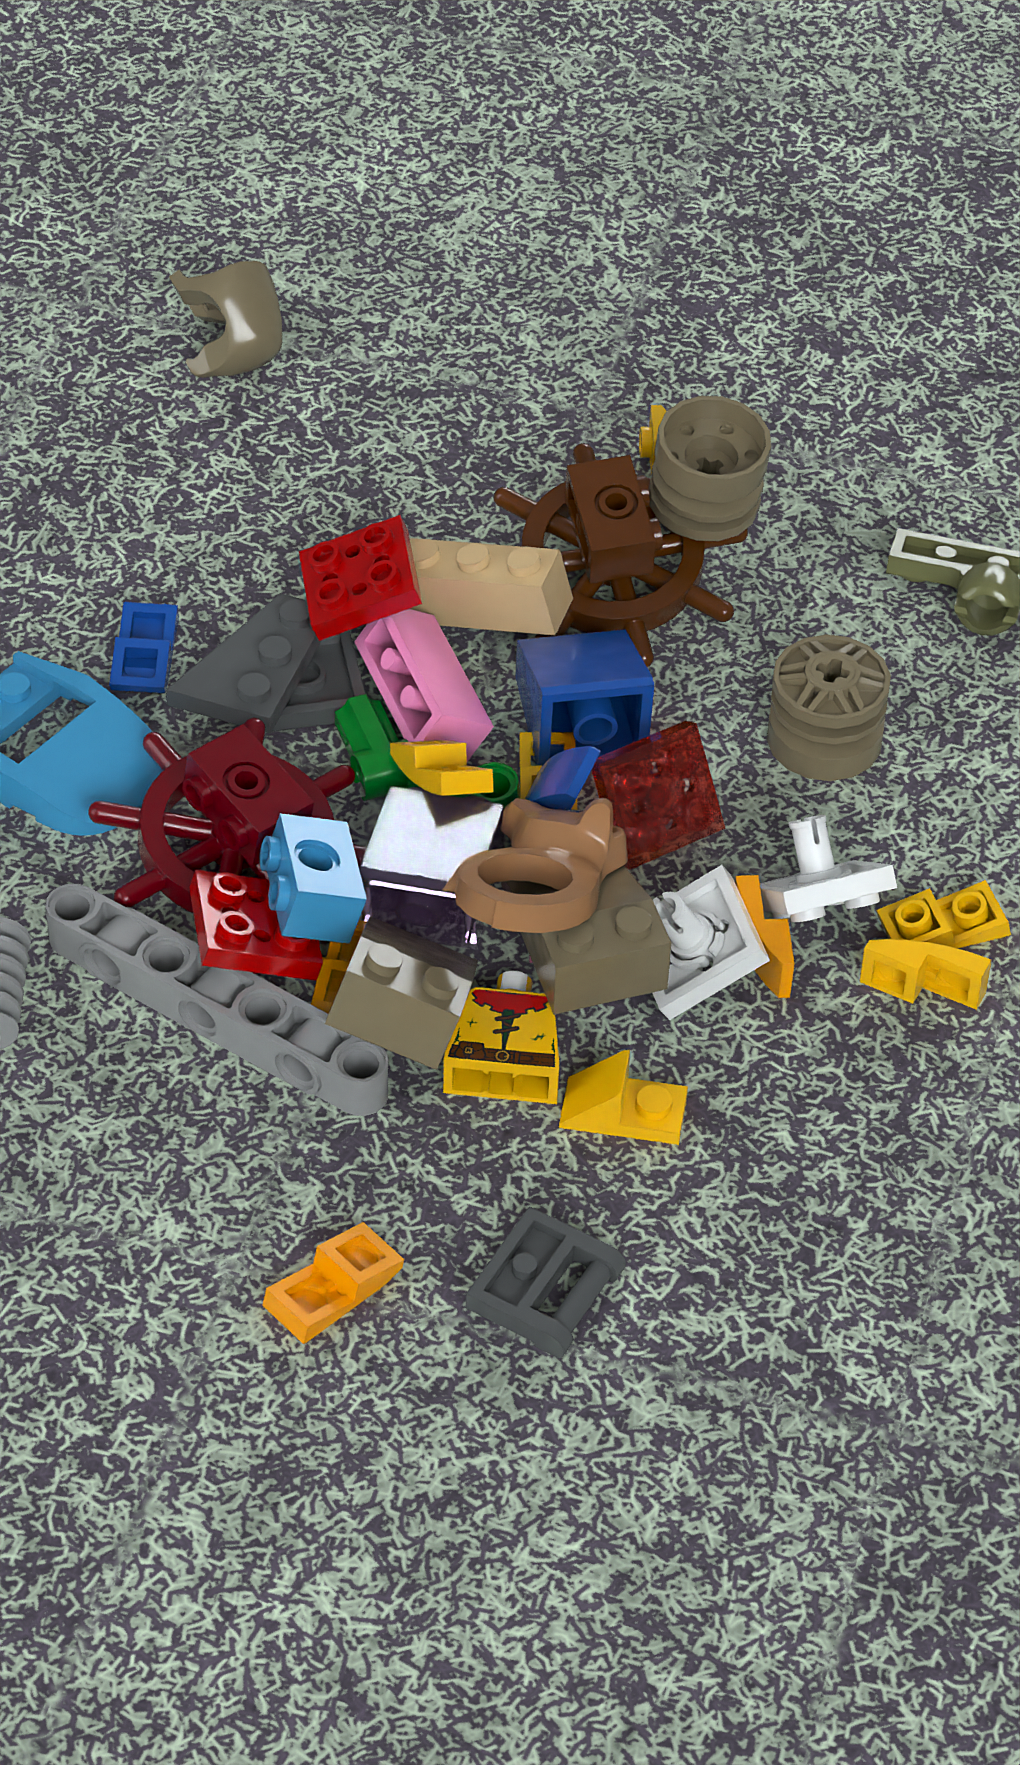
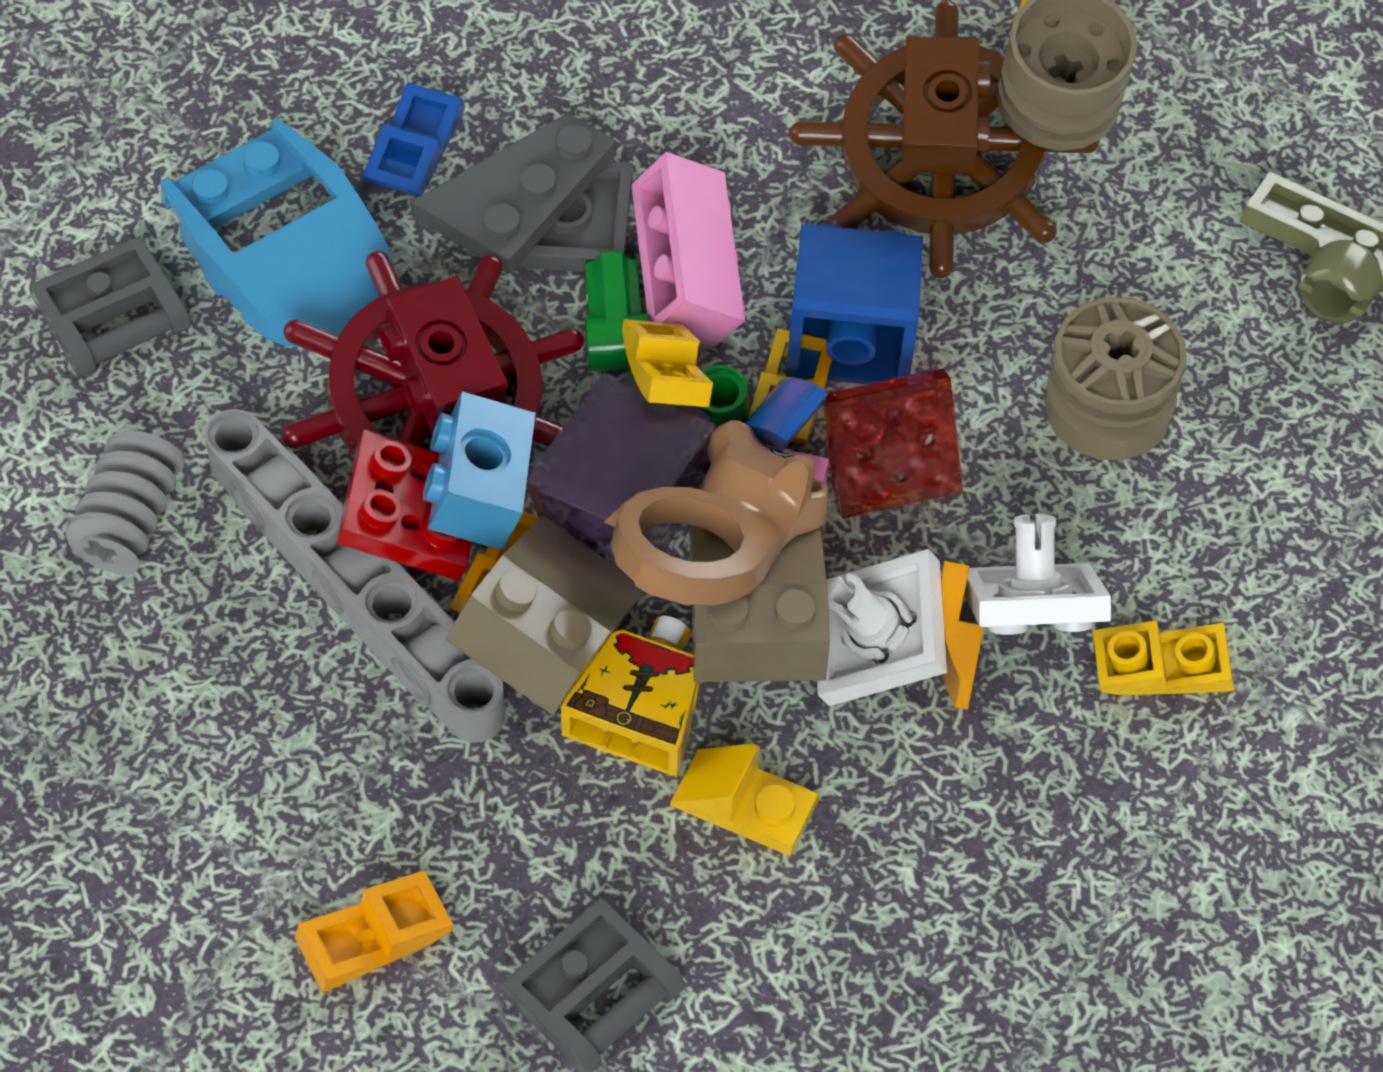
camera: 15 degrees right, 10 degrees up
(363, 588) = (655, 128): red plate -> none
(492, 586) = (760, 143): tan brick -> none
(910, 965) = (1103, 709): yellow slope -> none

